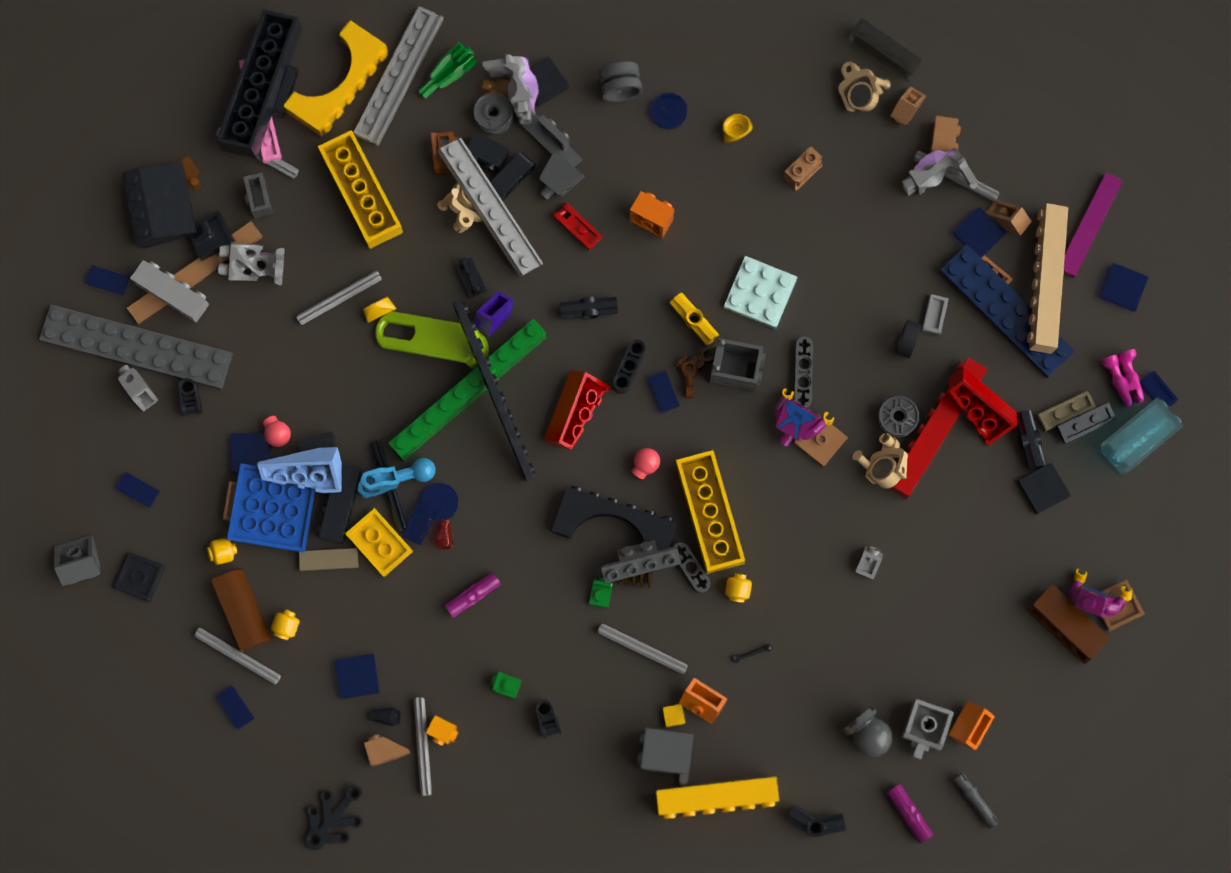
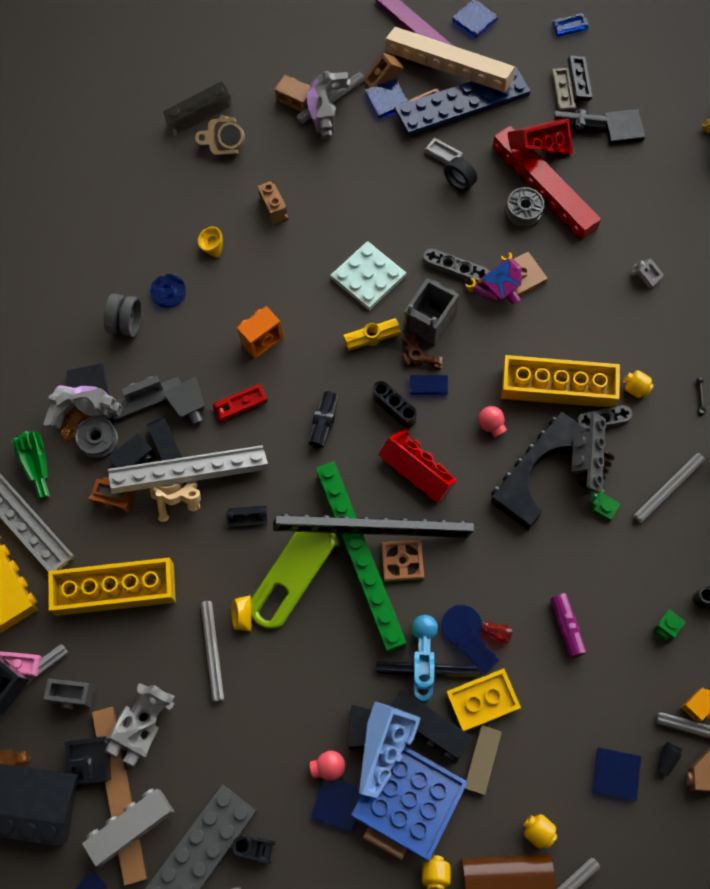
camera: 65 degrees left, 10 degrees down
(486, 443) = (411, 559): none -> nougat piece
(493, 313) = (293, 500): dark purple brick -> none
(882, 467) = (571, 228): tan piece -> none
(907, 106) = (255, 109): medium nougat slope -> none
(1127, 383) = (552, 40): dark pink piece -> none
(1140, 436) = (608, 42): clear light blue brick -> none

